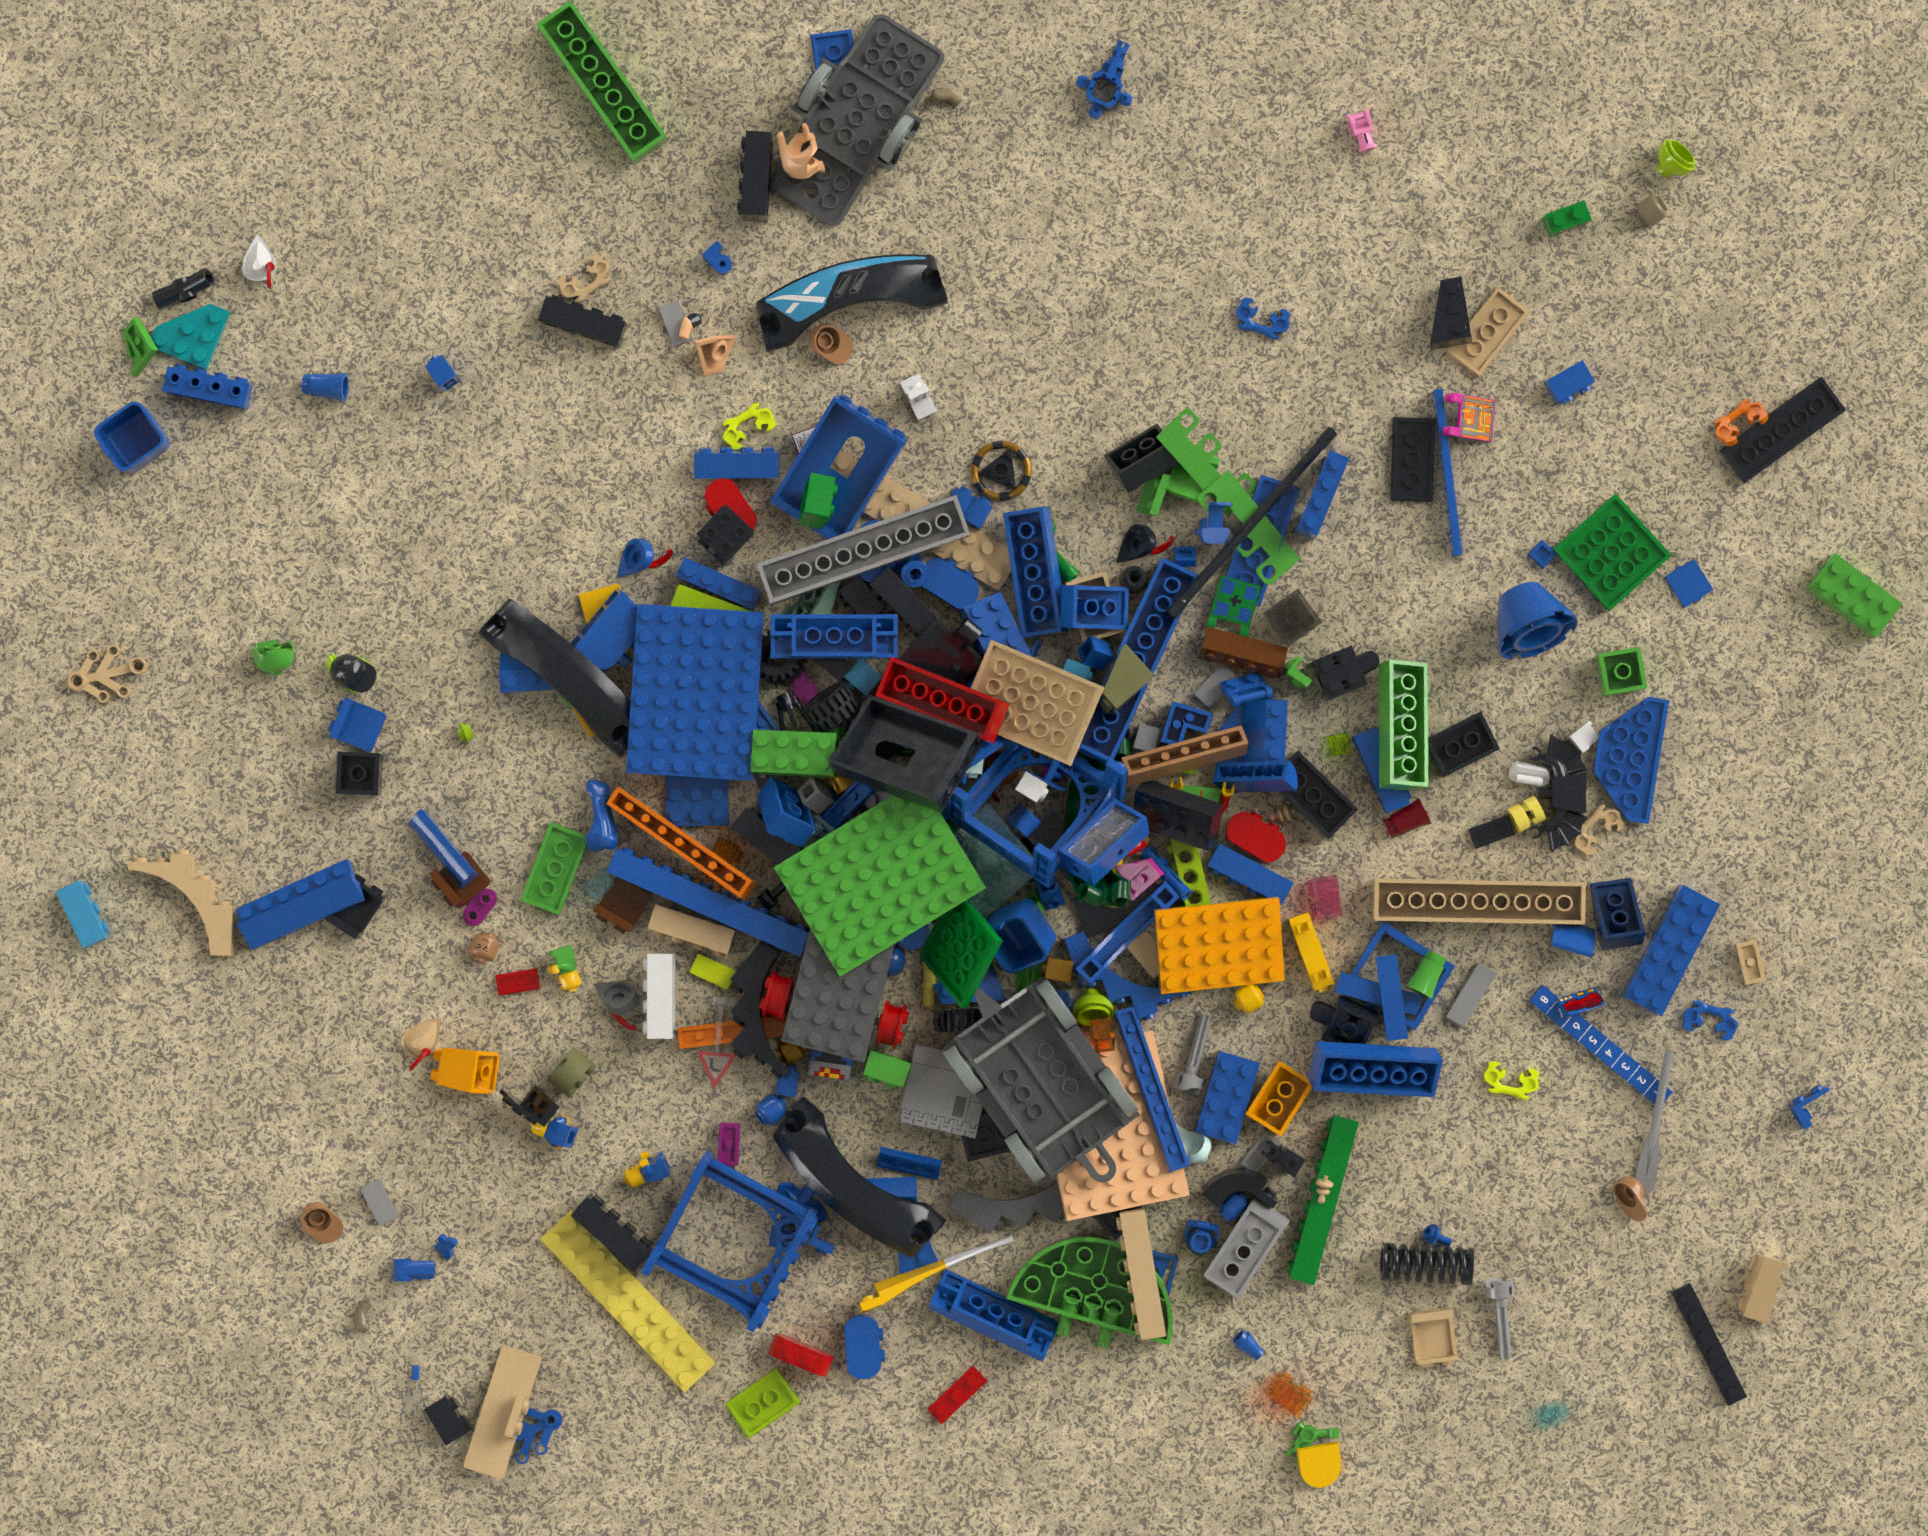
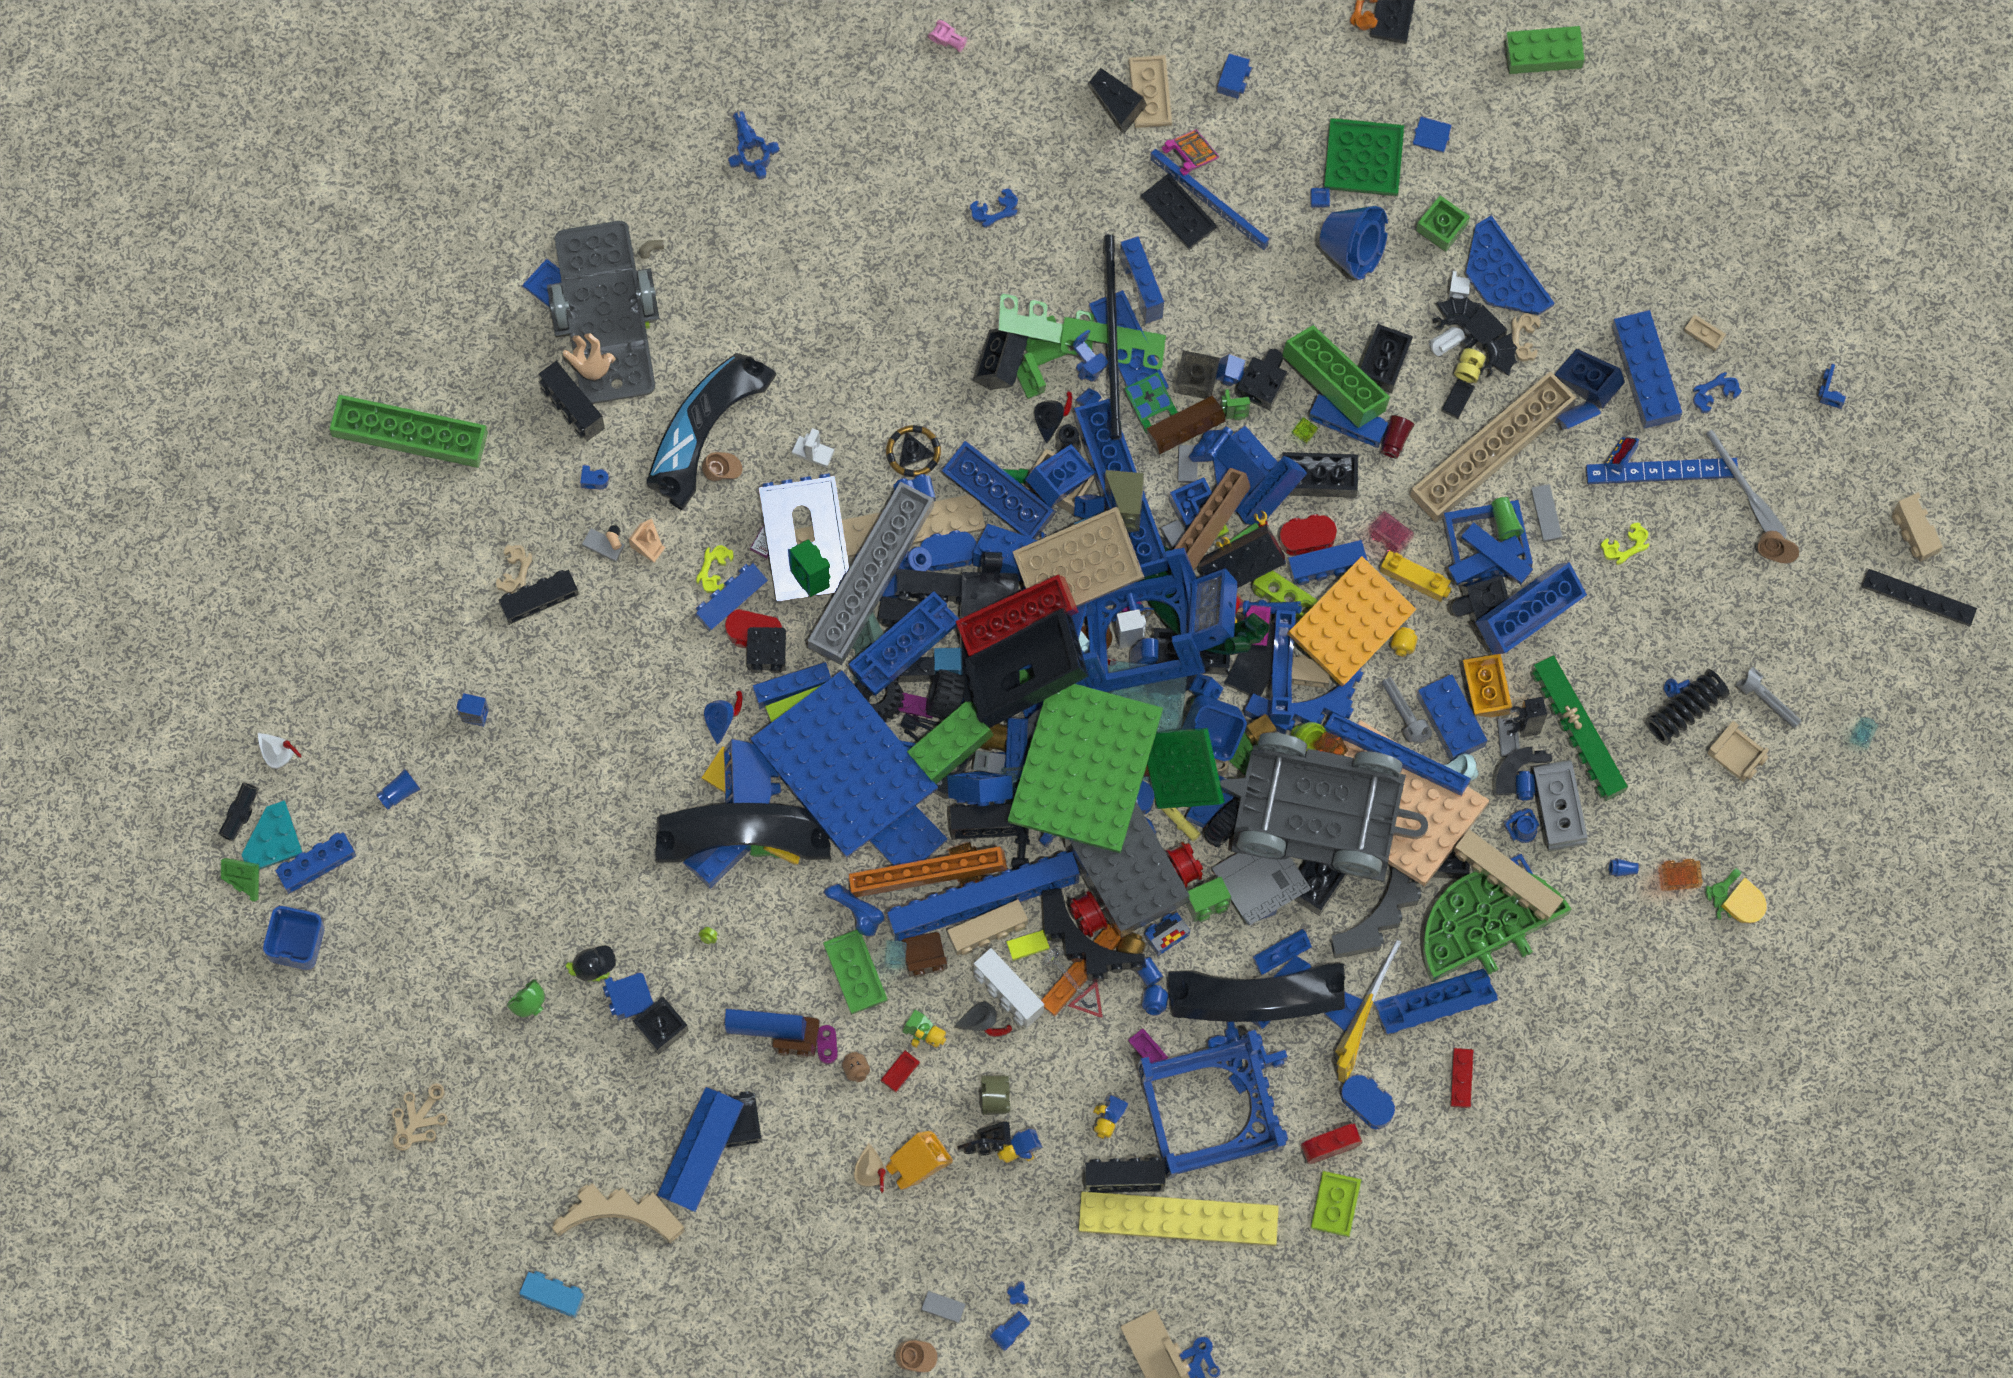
camera: 45 degrees left, 15 degrees down
(1281, 814) = (1310, 507): tan hair -> none
(1324, 639) = (1230, 370): none -> blue brick

